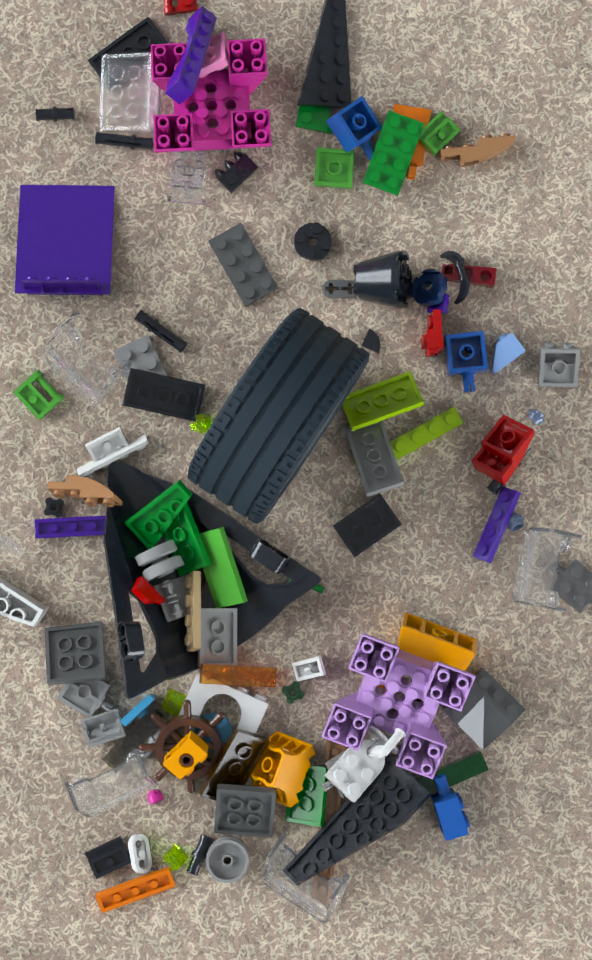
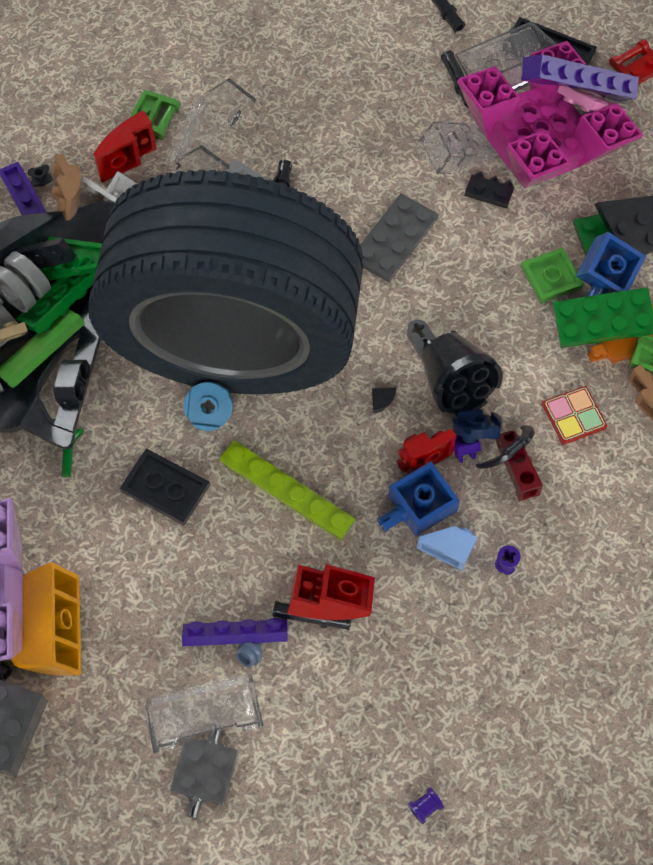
camera: 65 degrees right, 20 degrees down
(64, 240) = (325, 70): dark purple door -> none
(67, 430) = (125, 146): none -> red slope
(147, 533) = (48, 253): none -> black plate
(313, 463) = (217, 416): none -> dark azure plate
(317, 232) = (459, 279): black plate -> none
(374, 458) = (247, 452): light grey plate -> none
(382, 401) = (318, 434): lime plate -> none
(450, 215) = (574, 415): none -> tile
(536, 416) = (392, 618): sand blue plate -> none
(538, 316) = (508, 552): none -> dark purple bush
(558, 365) = (469, 614): light grey plate -> none

